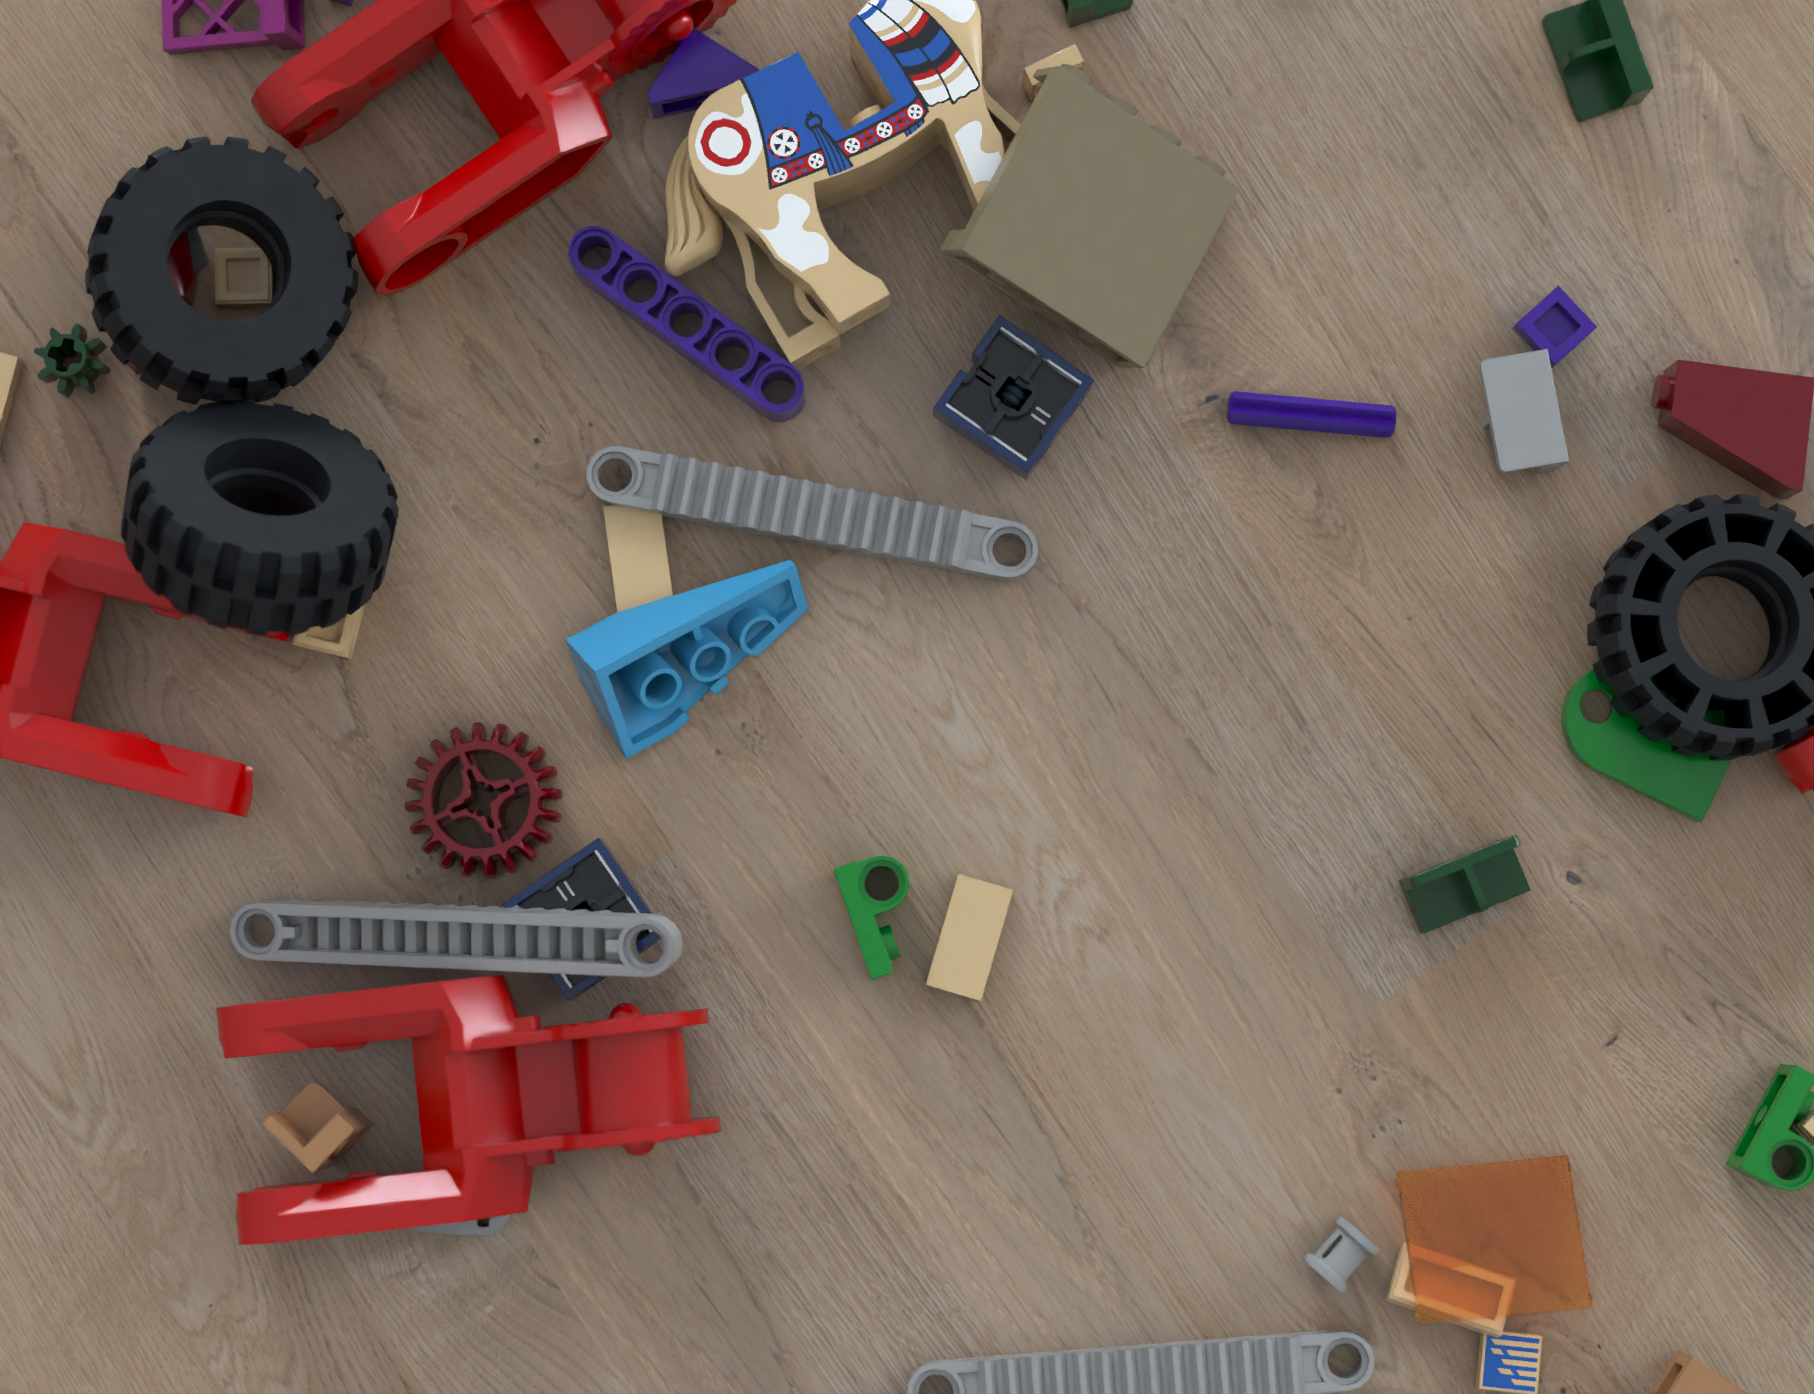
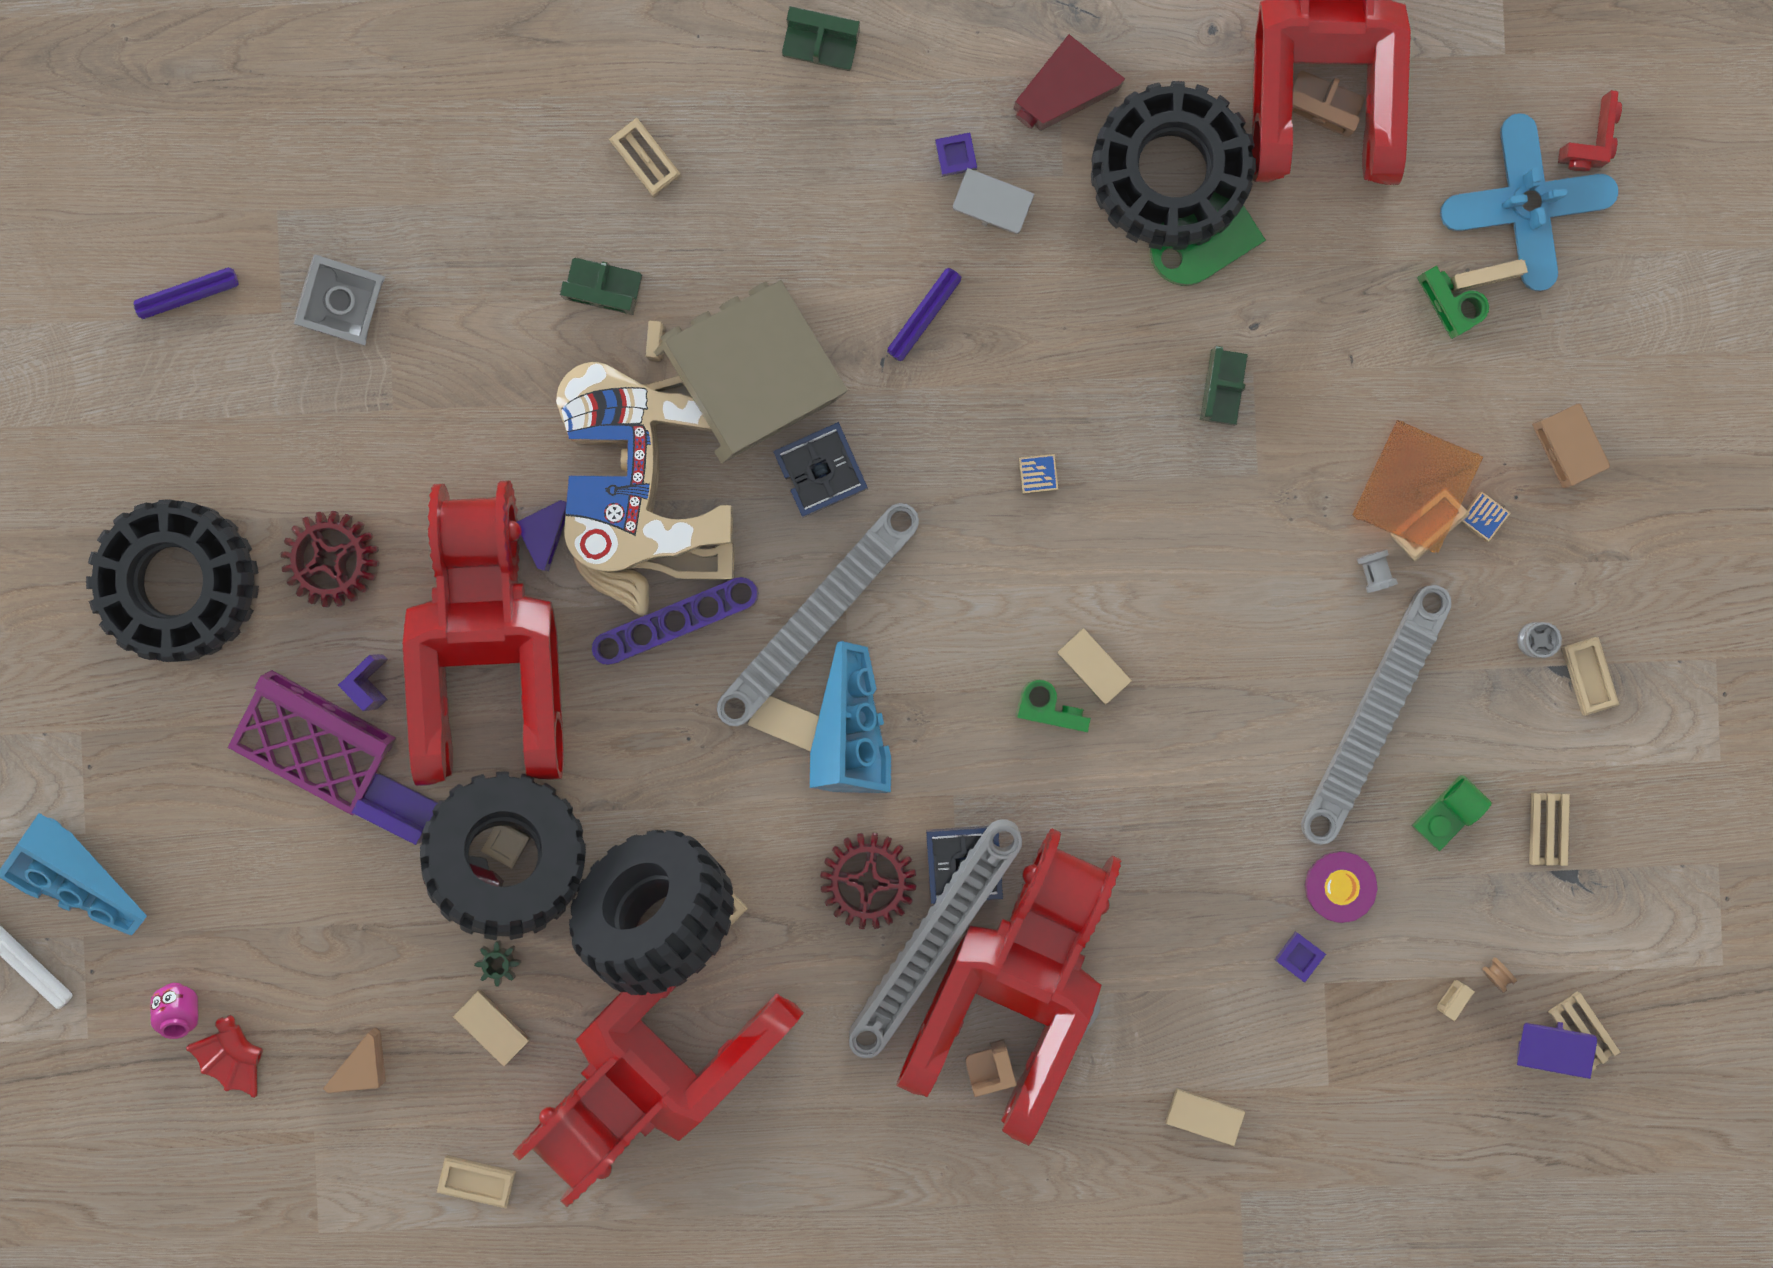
camera: 55 degrees left, 5 degrees up
(204, 93) = (395, 808): none -> dark purple panel
(1188, 700) = (1038, 473): none -> tile

